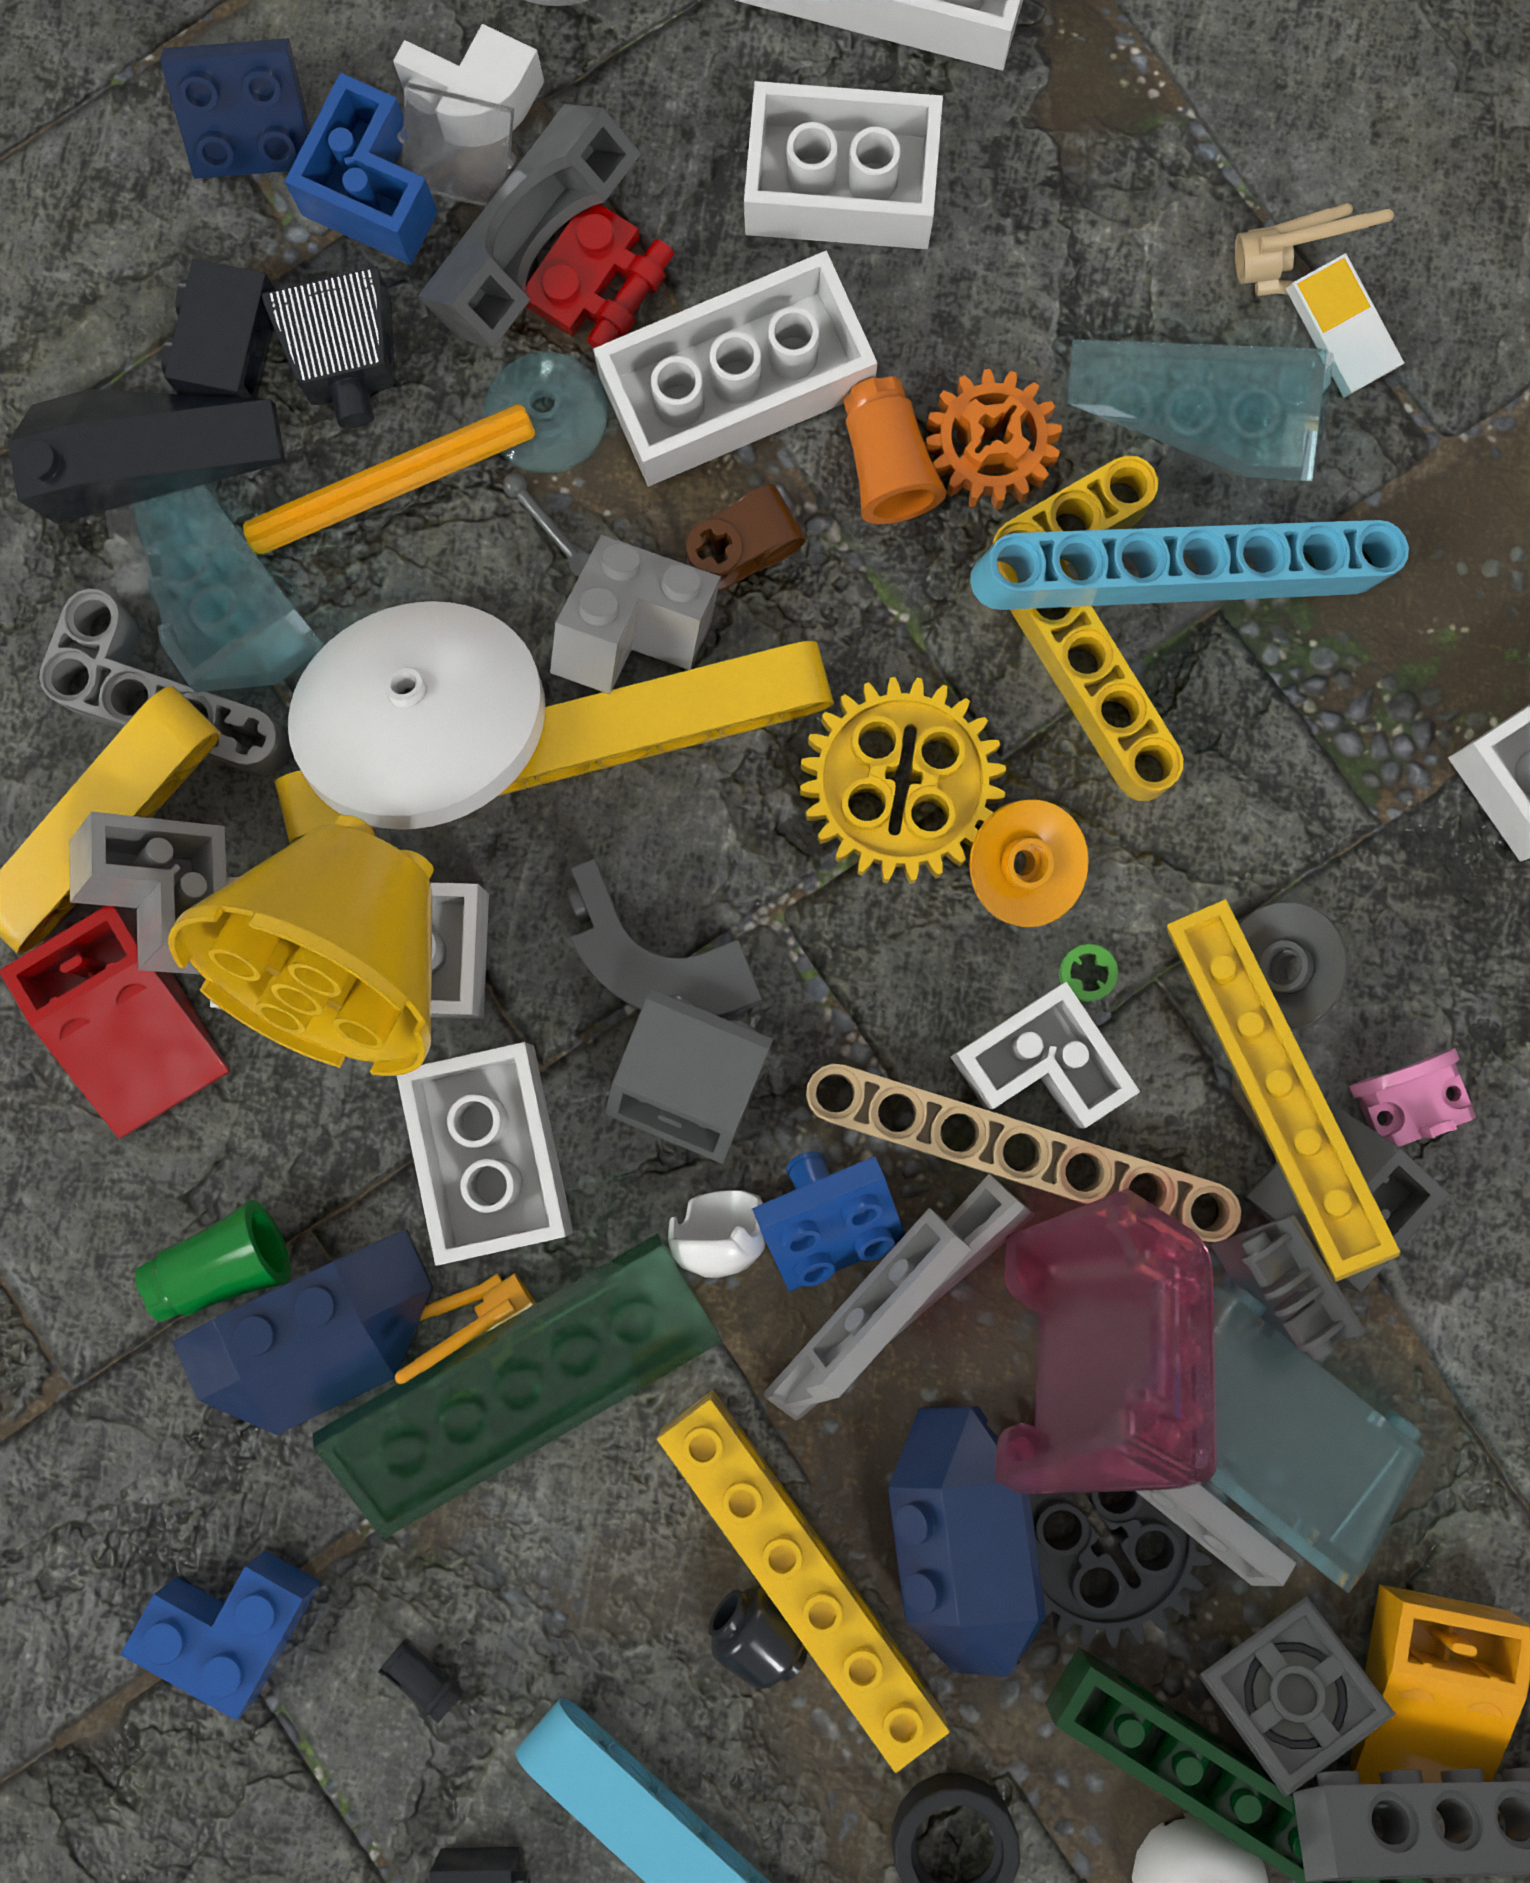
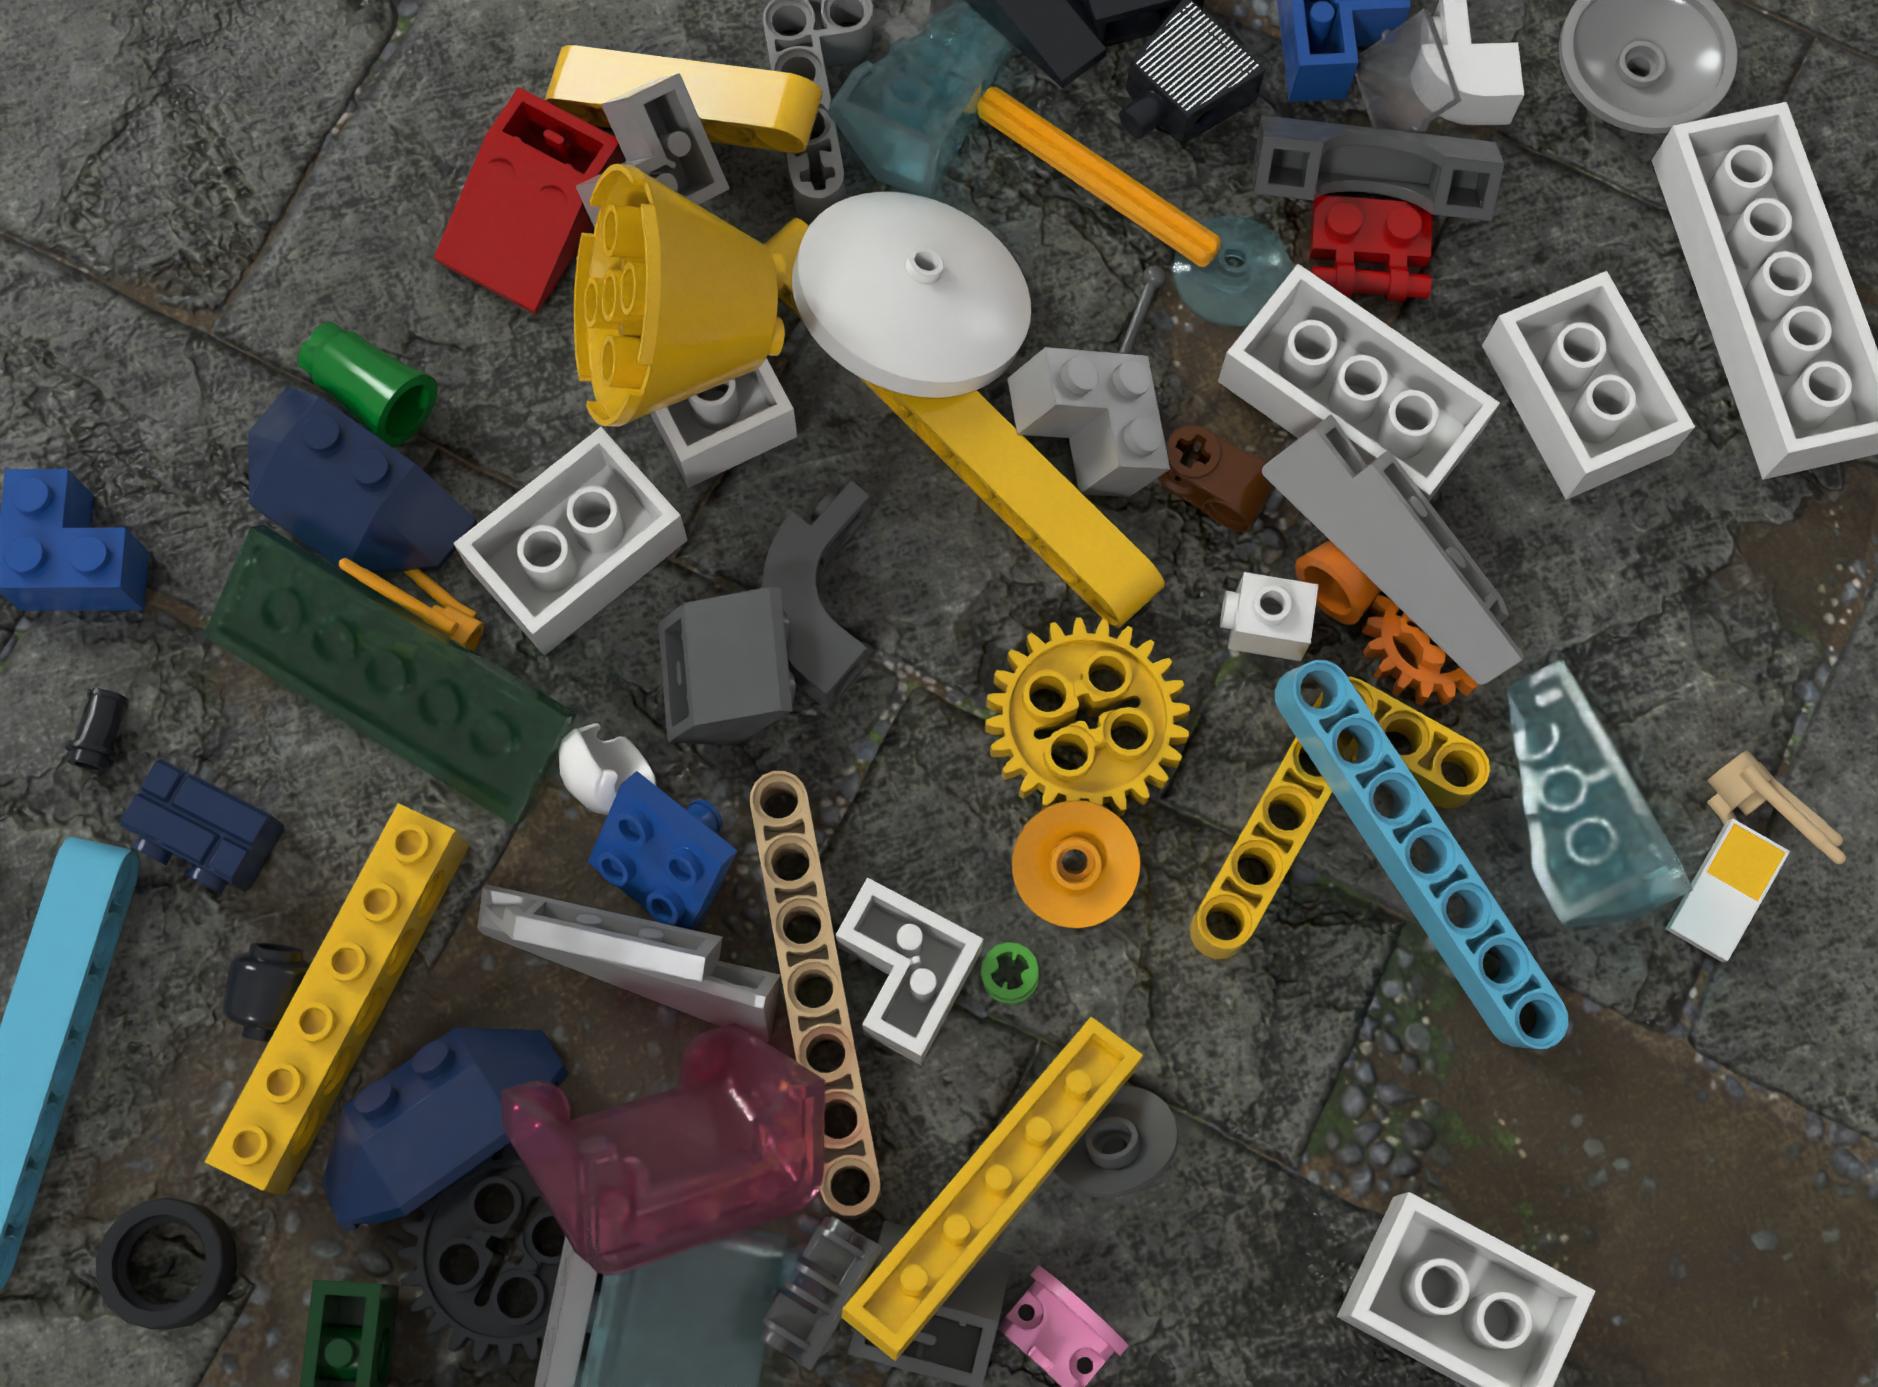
camera: 55 degrees right, 10 degrees down
(571, 1628) = (201, 826): none -> dark blue brick
(897, 566) = (1270, 616): none -> white brick
(904, 417) = (1399, 544): none -> light grey wedge

